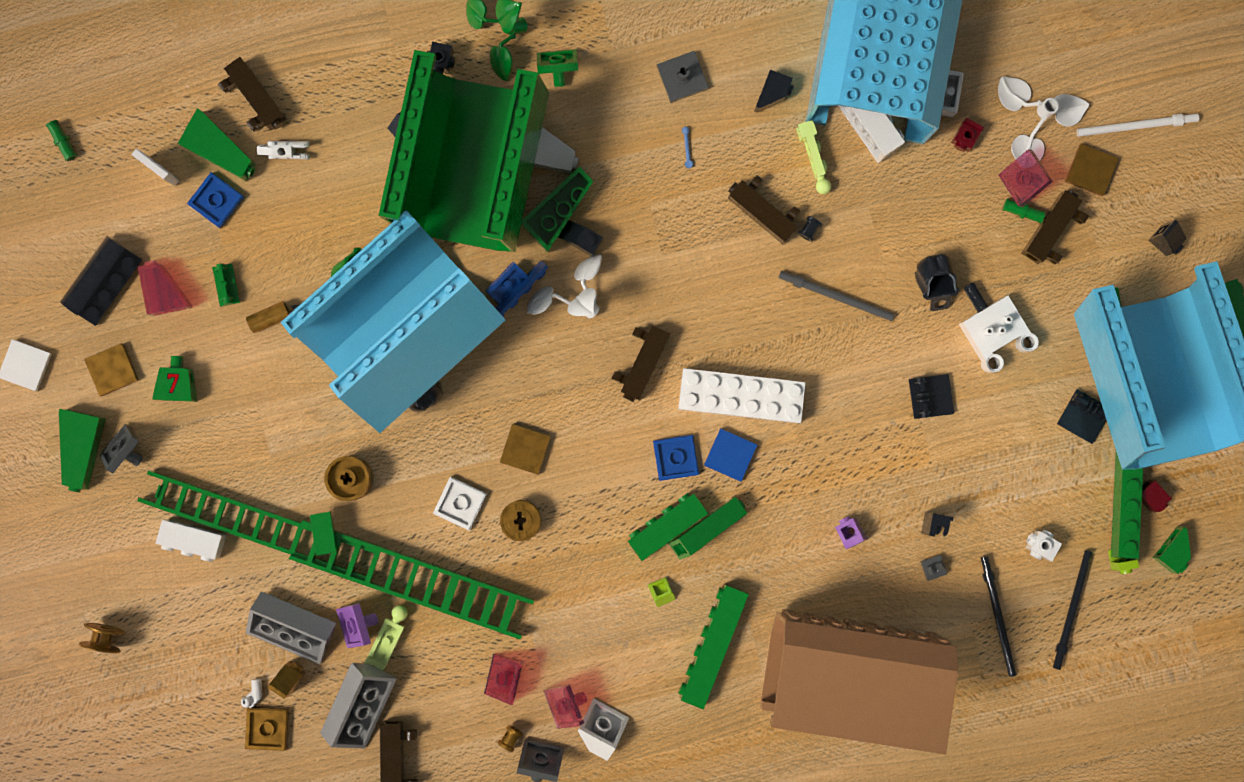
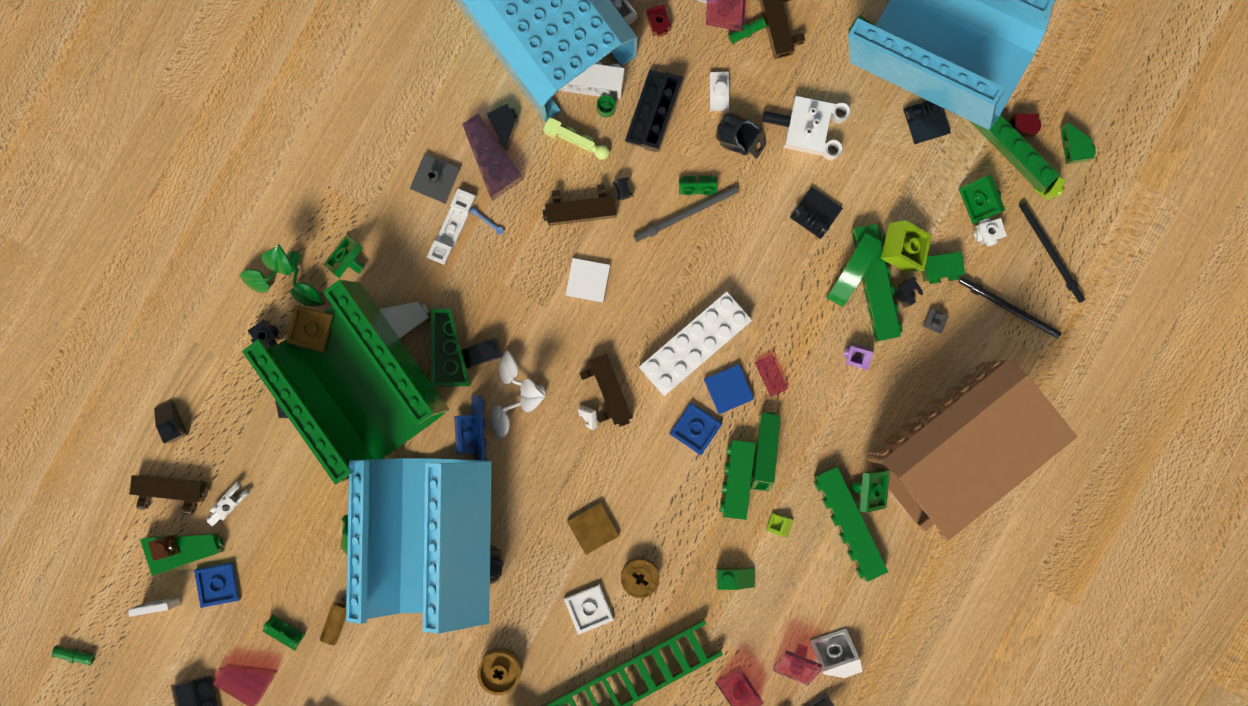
camera: 45 degrees left, 0 degrees up
(207, 132) = (163, 547): none -> reddish brown brick
(305, 48) = (169, 423): none -> black slope
(477, 88) = (310, 328): none -> pearl gold tile
(588, 595) = (735, 578): none -> green slope
(609, 365) = (589, 416): none -> white tile
(657, 125) = (452, 227): none -> white slope
(713, 267) = (587, 280): none -> white tile
(737, 110) = (494, 163): none -> clear purple wedge
(756, 639) = (873, 490): none -> green tile
(771, 478) = (771, 375): none -> clear pink tile
(860, 278) = (706, 186): none -> green hinge
(865, 155) = (606, 102): none -> green wheel
(894, 196) = (654, 110): none -> black brick
(914, 466) = (854, 269): none -> green slope
(920, 493) = (879, 291): none -> green brick
(955, 233) = (719, 91): none -> white tile
(970, 490) = (906, 246): none -> lime brick
(980, 533) = (942, 267): none -> green piece
(1063, 515) = (982, 199): none -> green tile

